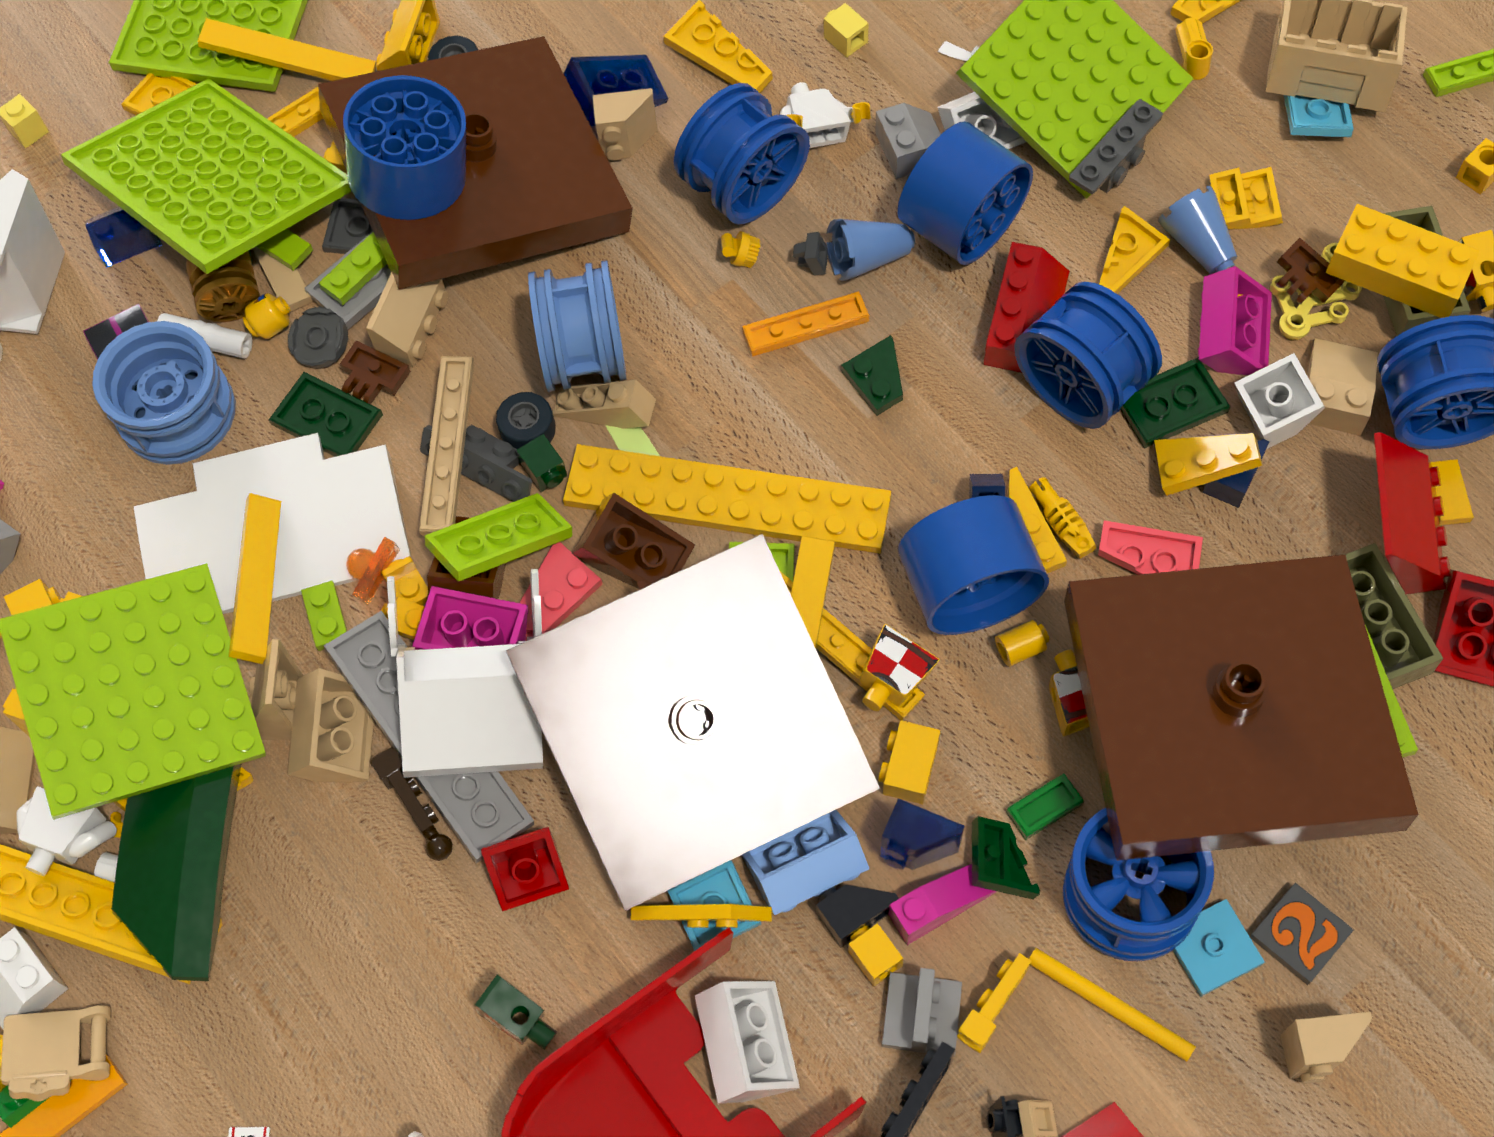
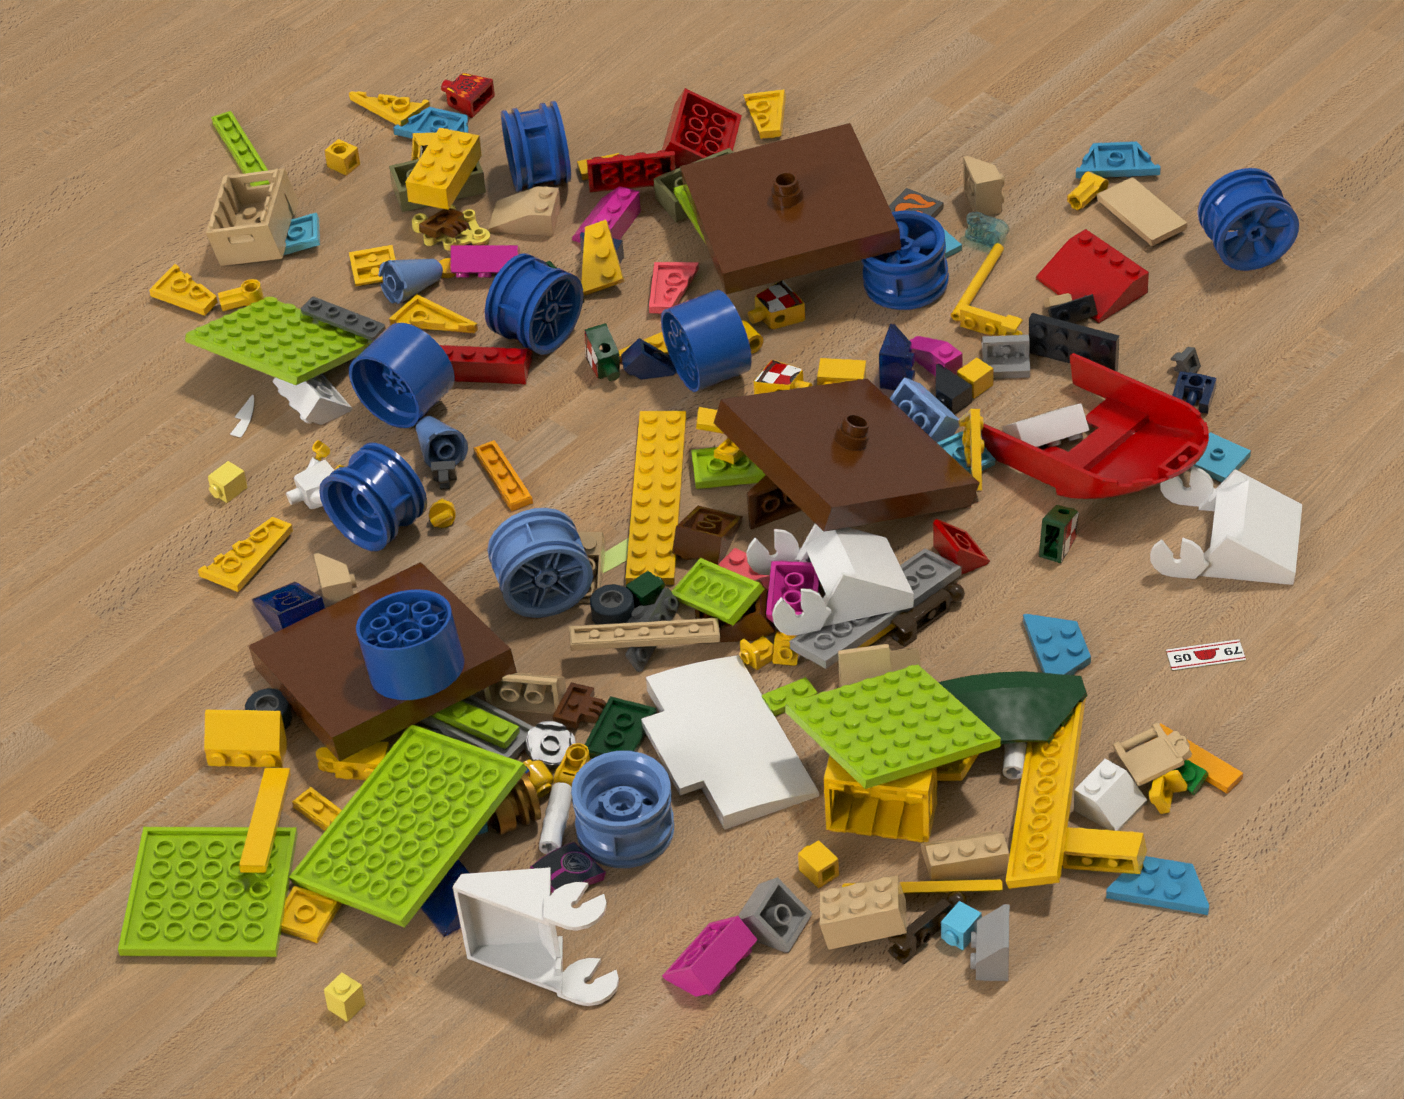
camera: 100 degrees left, 20 degrees down
(64, 837) = (994, 788): white torso -> none
(255, 579) = (777, 703): yellow tile -> none
(271, 360) = (572, 762): none -> yellow piece
(311, 971) = (1057, 644): none -> dark azure wing
(367, 567) = (752, 664): clear orange tile -> none
(876, 376) = (544, 432): dark green wing -> none
(905, 135) = (340, 435): light grey slope -> none
(998, 860) = (910, 330): dark green wing -> none
(1002, 448) = (605, 361): none -> dark green torso
(1044, 806) = (856, 321): green tile -> none
(1063, 519) = (643, 329): yellow hinge -> none
(1224, 1042) = (986, 230): none -> clear light blue piece
(1279, 399) = (550, 229): white slope -> none
(1312, 490) = (617, 208): none -> dark pink slope

